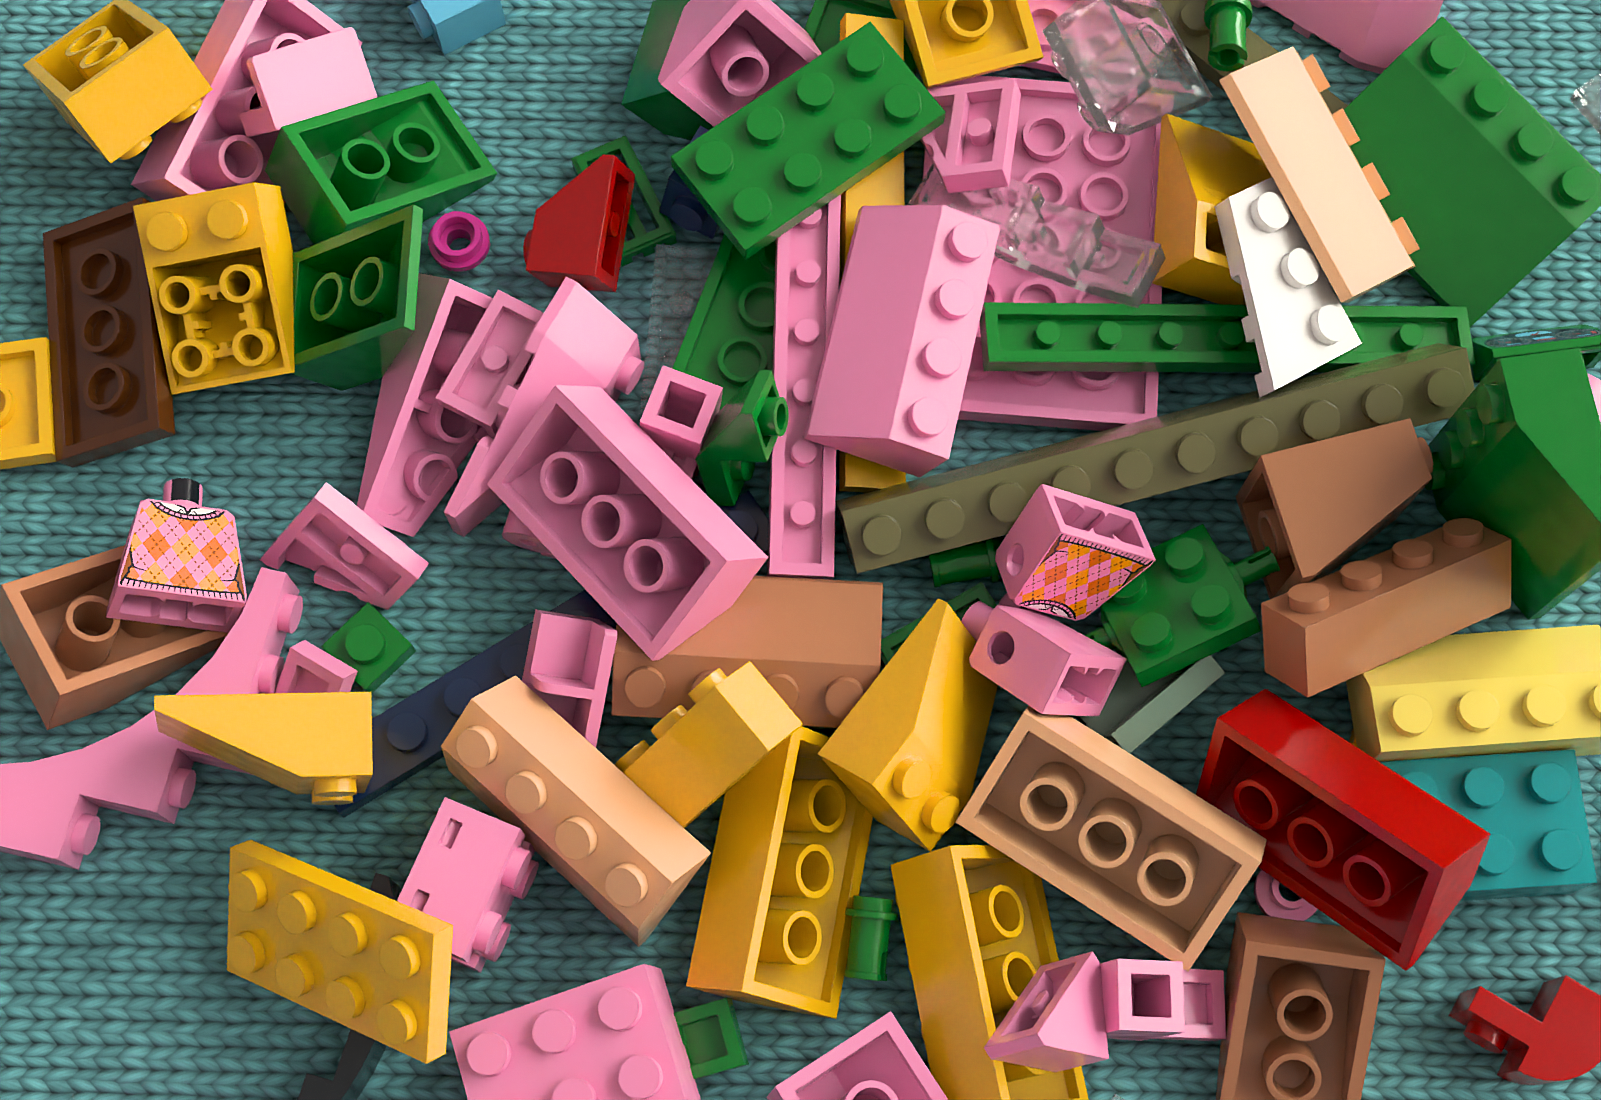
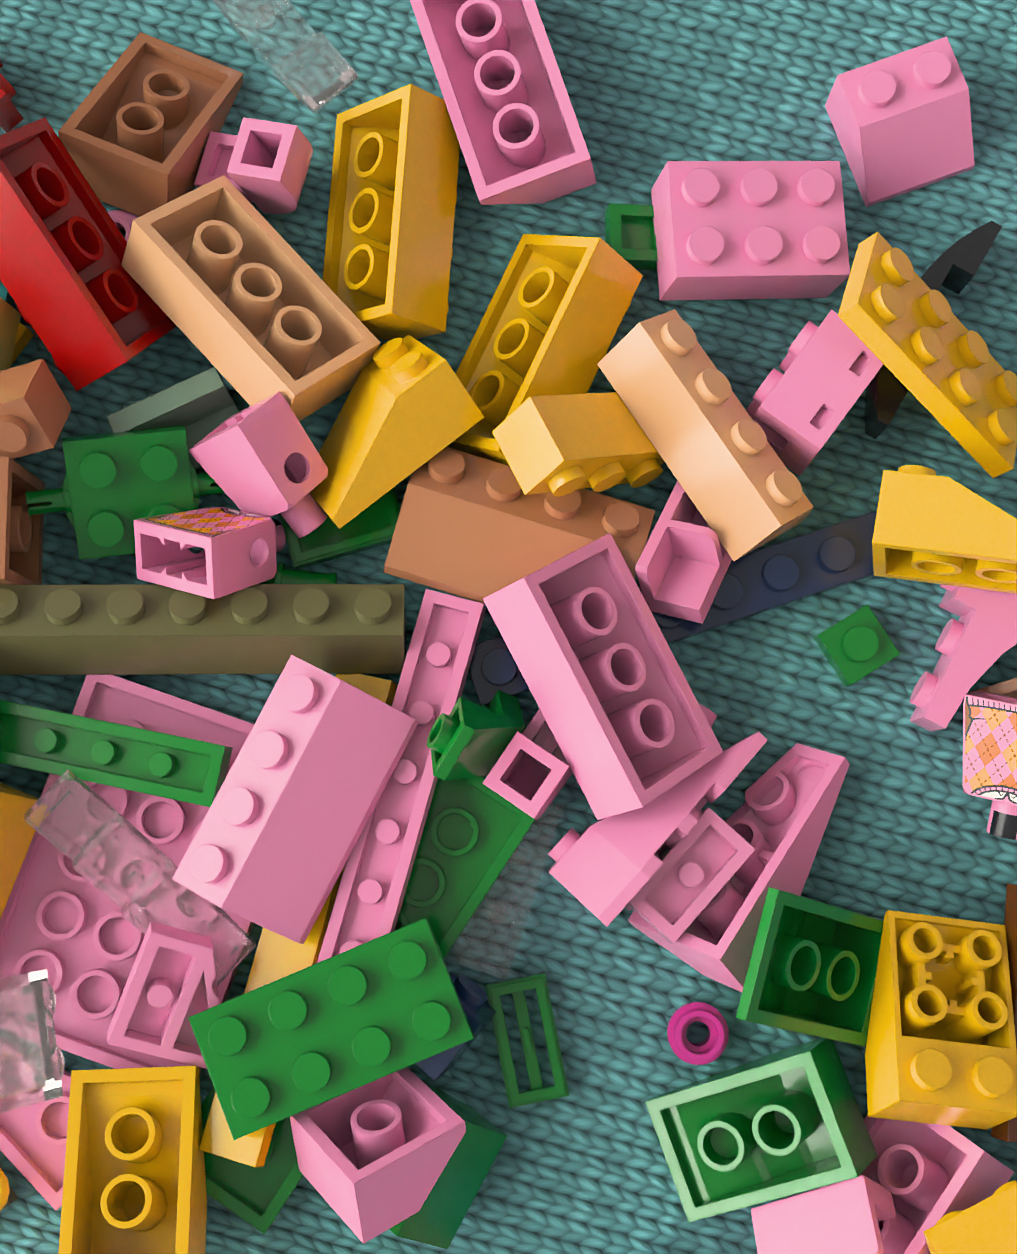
camera: 160 degrees left, 10 degrees up
(314, 671) = (912, 617): bright pink plate -> none
(347, 550) = (860, 732): bright pink wing -> none
(583, 228) = (576, 1001): red slope -> none
(869, 937) = (474, 296): green pin -> none
(1055, 1019) = (345, 163): bright pink slope -> none

